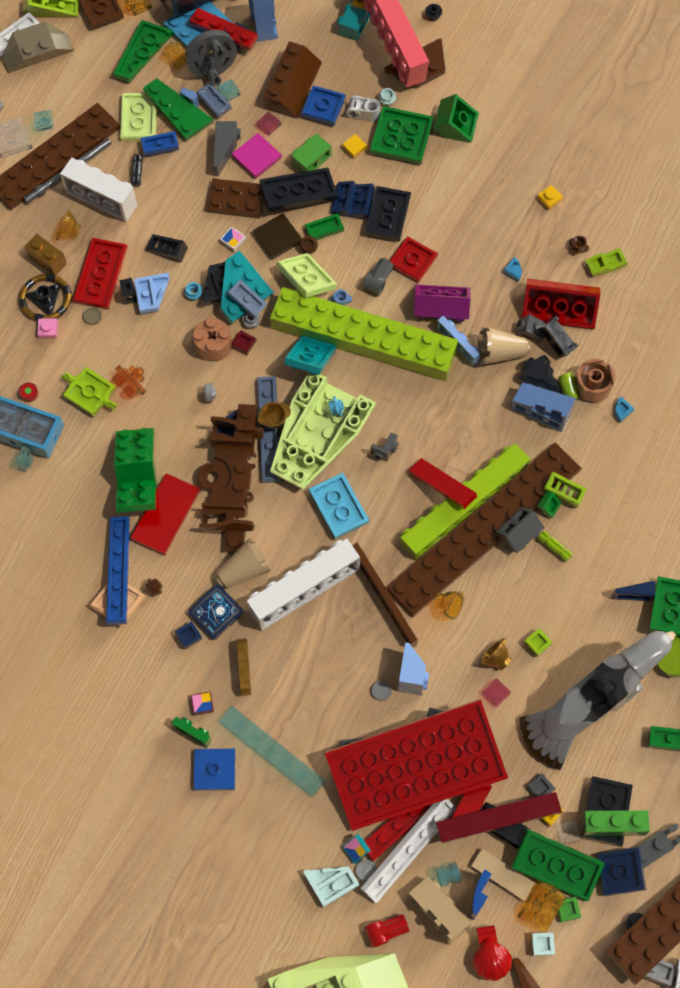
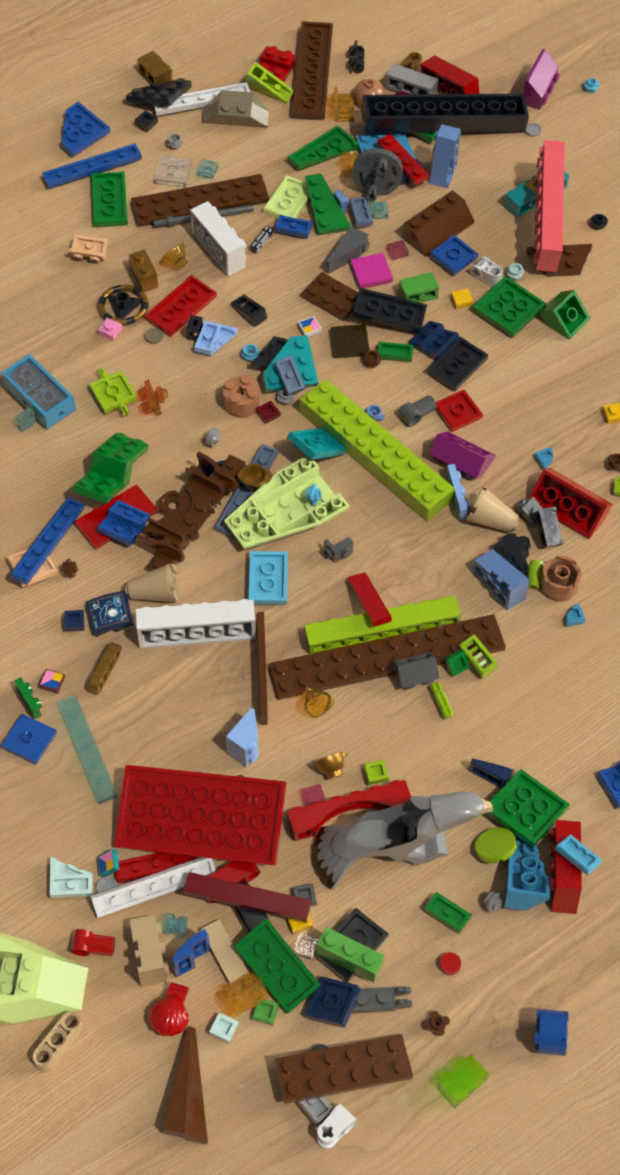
camera: 25 degrees right, 10 degrees down
(28, 392) = (63, 370): red tile -> none
(178, 518) = (123, 522): none -> blue slope
(306, 275) = (353, 380): yellowish green tile -> none
(381, 690) = (212, 746): light grey piece -> none
(563, 661) = (307, 820): none -> red arch

